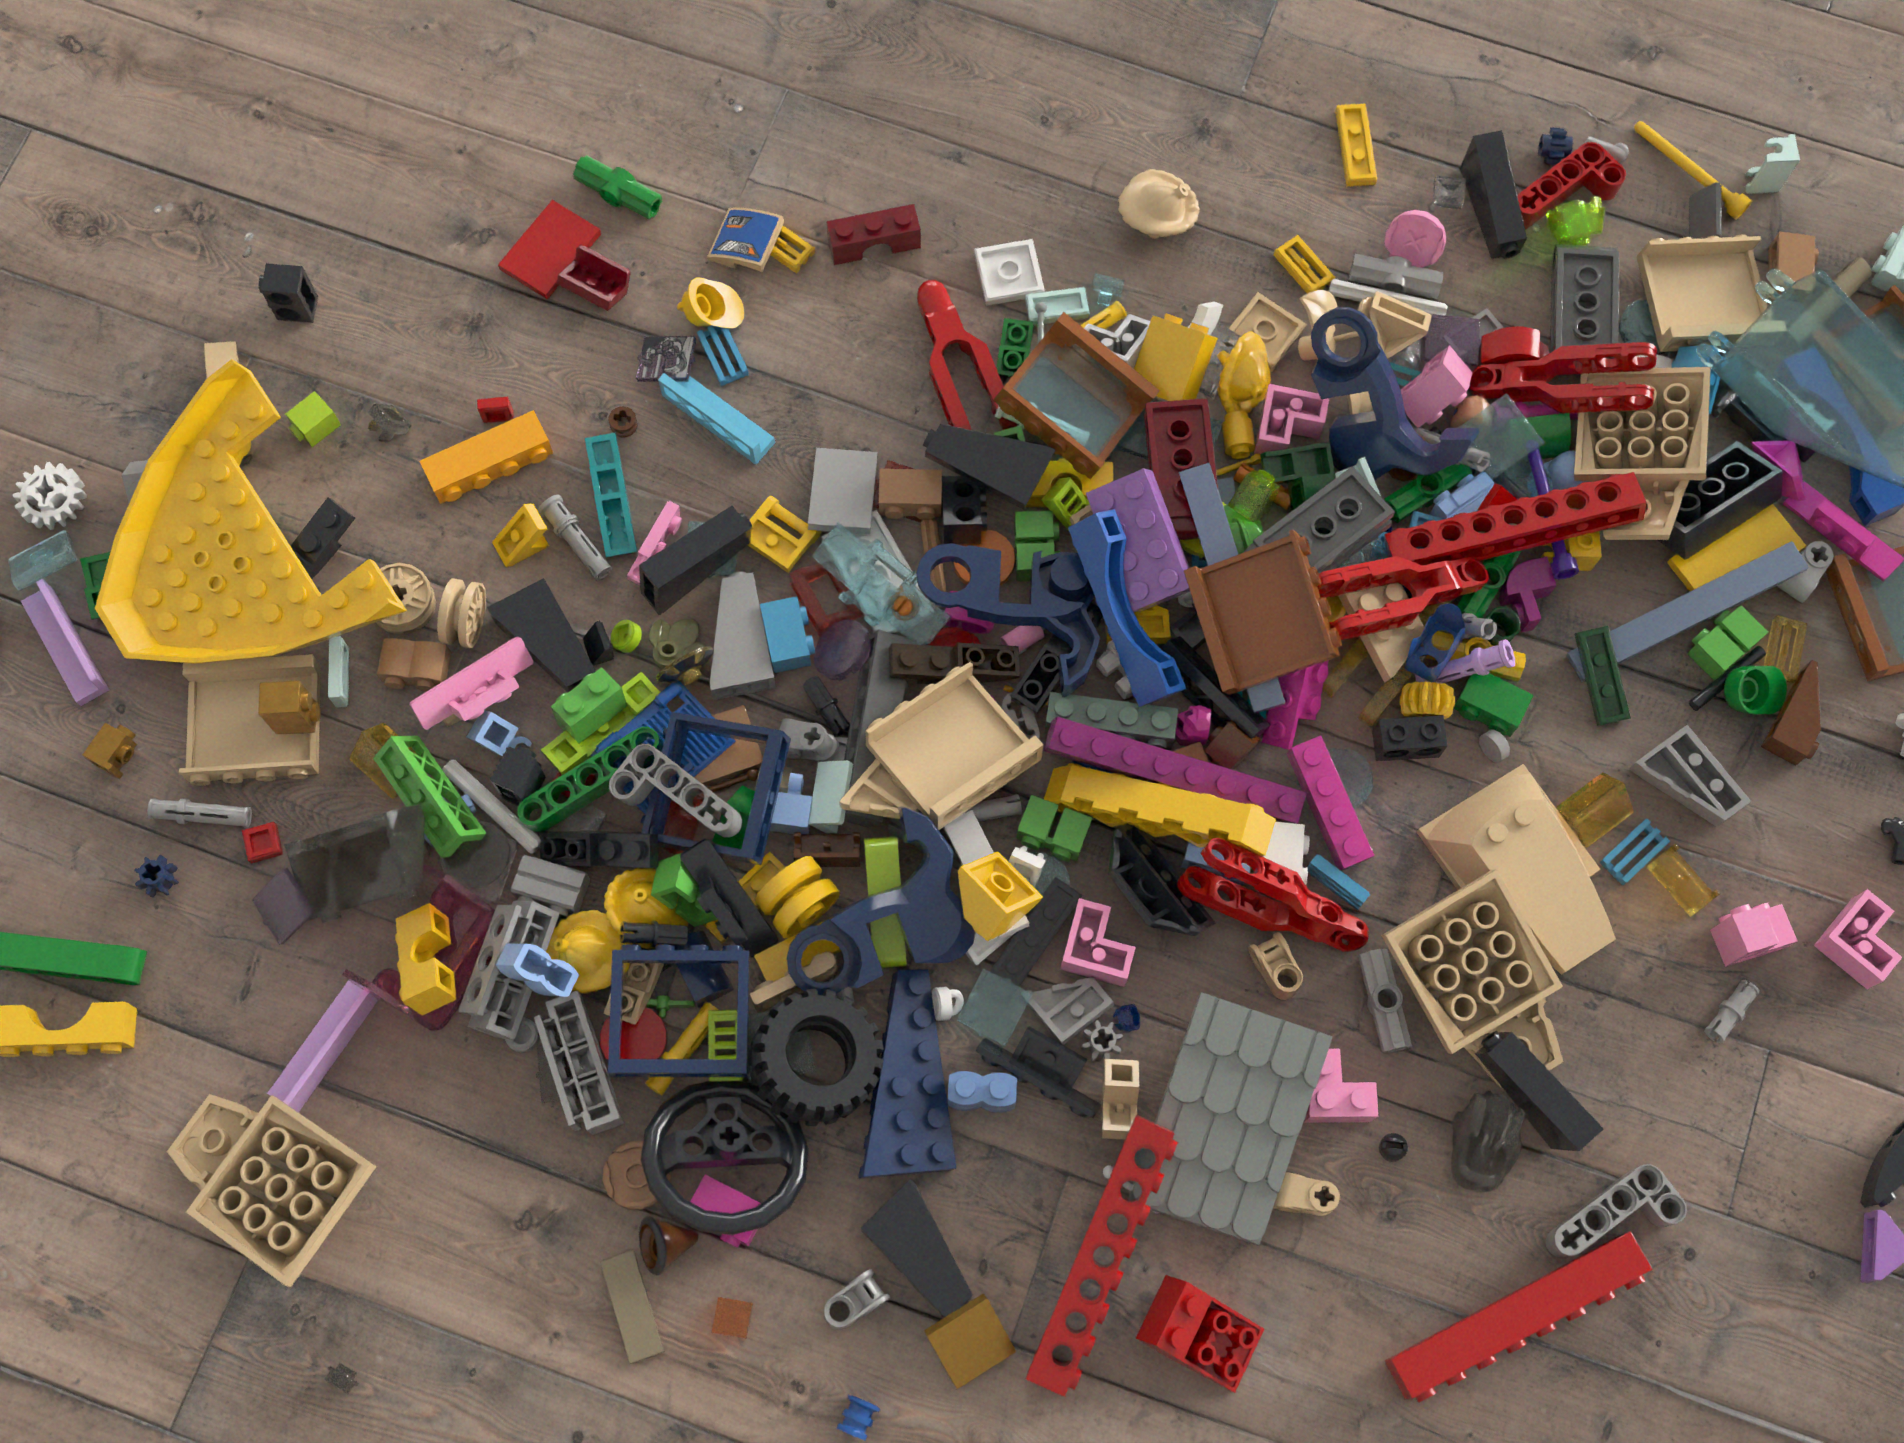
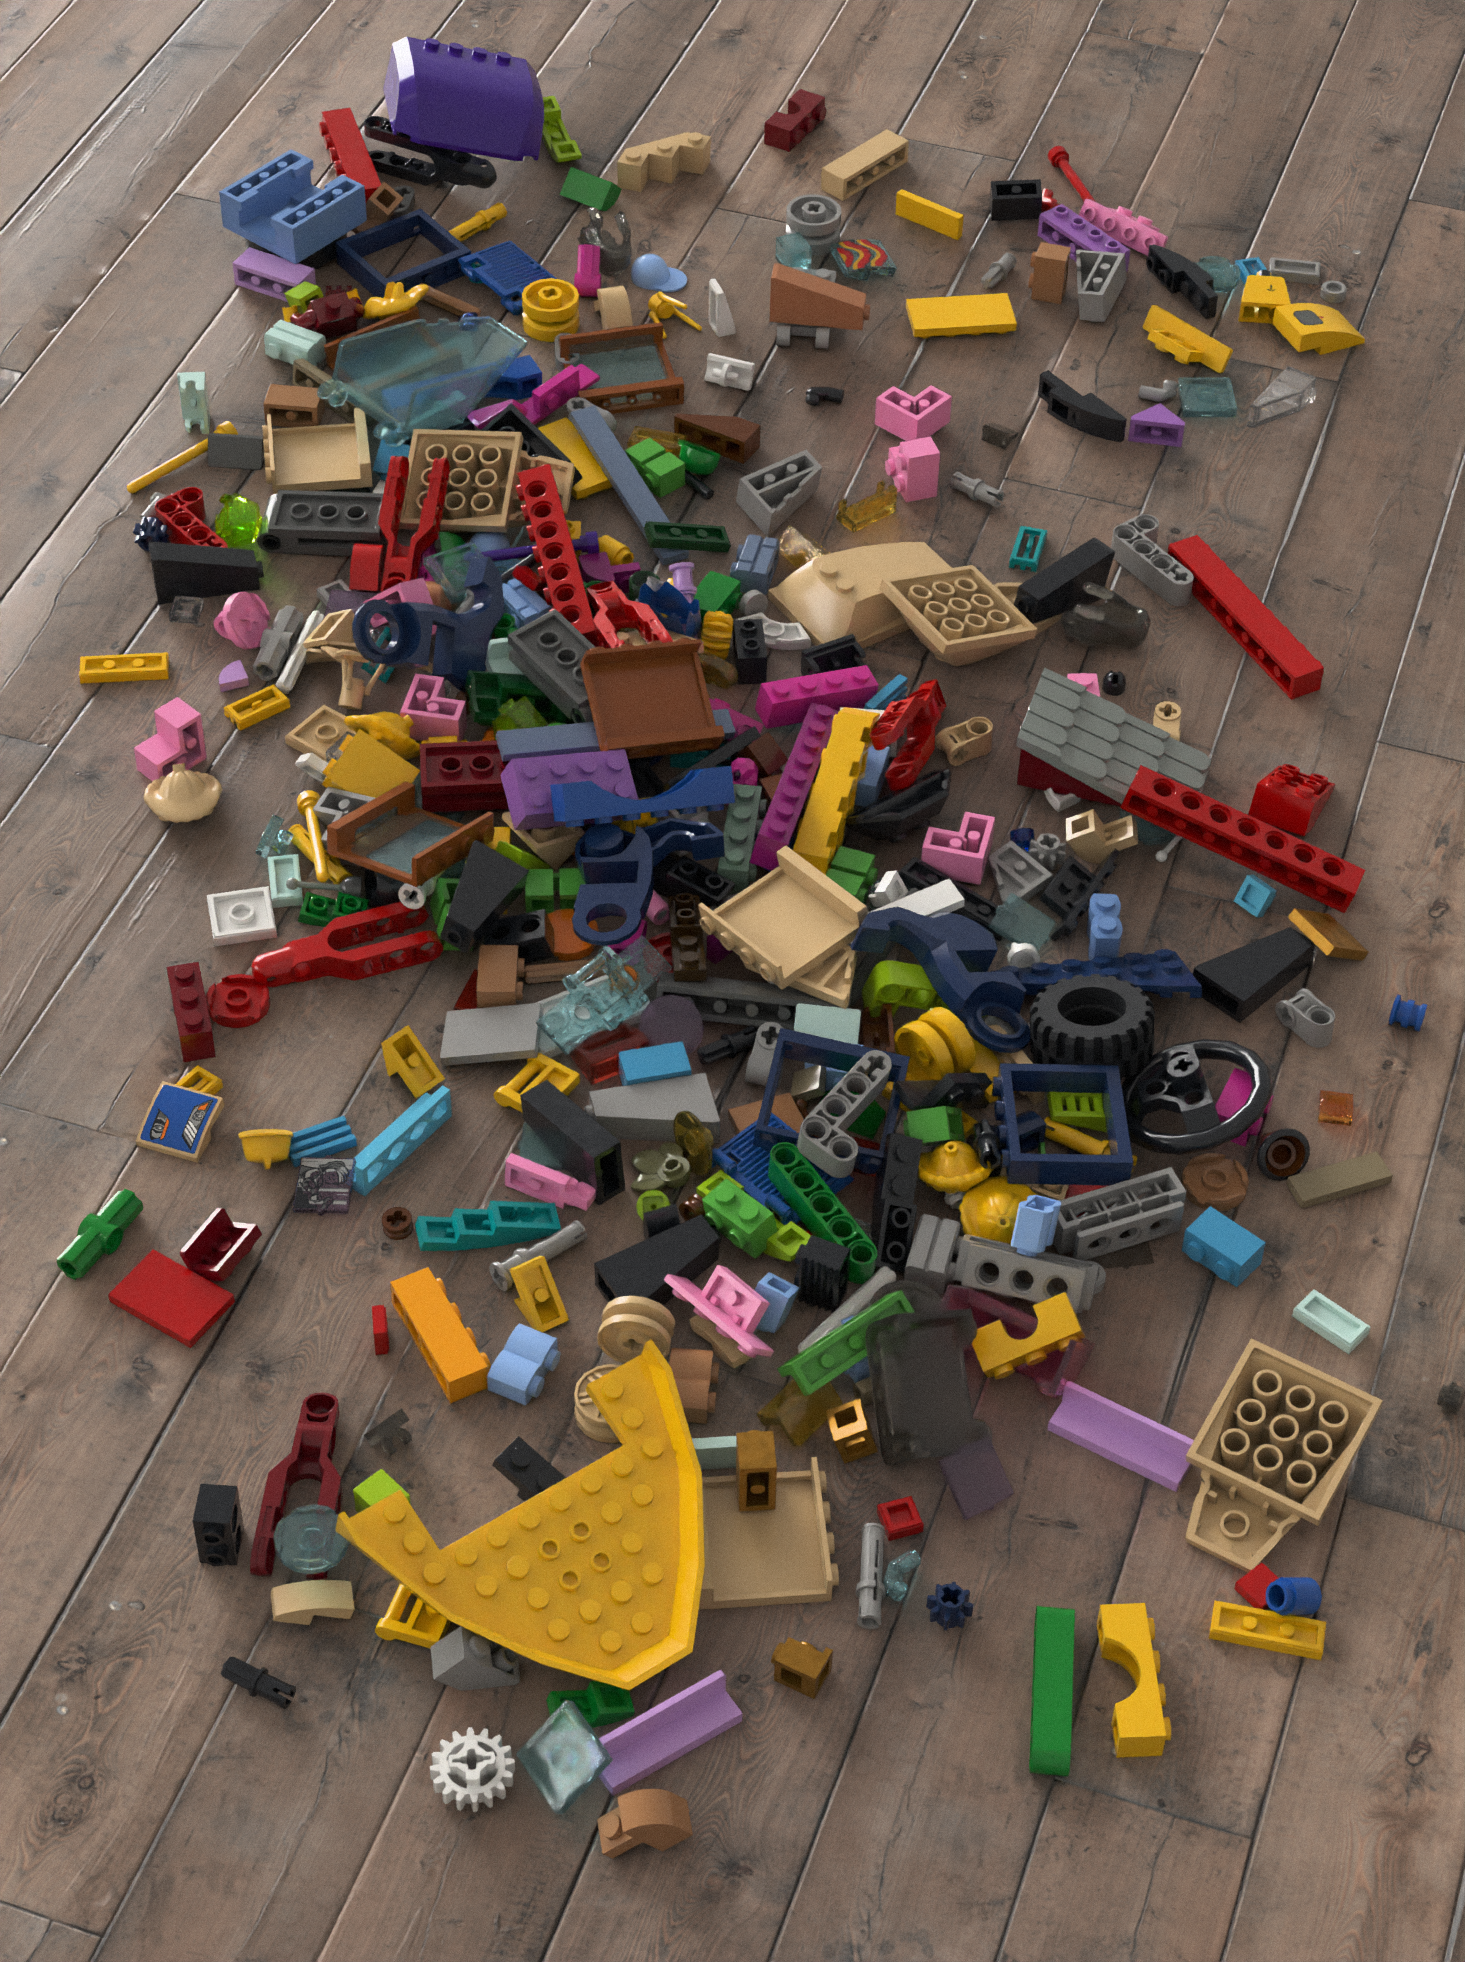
camera: 90 degrees left, 25 degrees down
(107, 1160) = (1267, 1630): none -> yellow tile
(123, 1183) = (1294, 1596): none -> blue brick
(150, 1159) = (1254, 1585): none -> red tile
(154, 339) = (257, 1681): none -> black axle
(201, 835) = (895, 1572): none -> clear light blue arm
(269, 359) = (309, 1541): none -> clear light blue tile
(350, 799) = (851, 1431): none -> pearl gold brick
(373, 362) = (309, 1459): none -> dark red piece
(448, 525) = (523, 1364): none -> light blue brick
(451, 1271) = (1331, 1321): none -> light aqua tile
(534, 1166) = (1223, 1246): none -> dark azure brick
(618, 670) = (692, 1207): none -> reddish brown bush
(801, 419) = (408, 1057): none -> yellow slope
(897, 276) = (237, 1001): none -> red tile
(994, 895) = (934, 889): yellow slope -> none
(1037, 1268) = (1255, 896): none -> medium azure tile
(1113, 321) = (306, 802): none -> yellow piece
(1228, 188) = (176, 742): none -> bright pink brick
(1347, 241) = (233, 677): none -> lavender tile
(1388, 1021) = (990, 677): light grey piece -> none
(1400, 829) = (832, 656): none -> black hinge
(1453, 769) = (782, 635): none -> white tile
(1563, 750) = (756, 563): none -> sand blue brick
(1568, 597) = (616, 551): none -> yellow brick
(1603, 1060) = (1025, 561): none -> teal tile
(1653, 834) = (845, 531): dark azure tile -> none
(1849, 1048) = (998, 435): none -> clear smoke slope

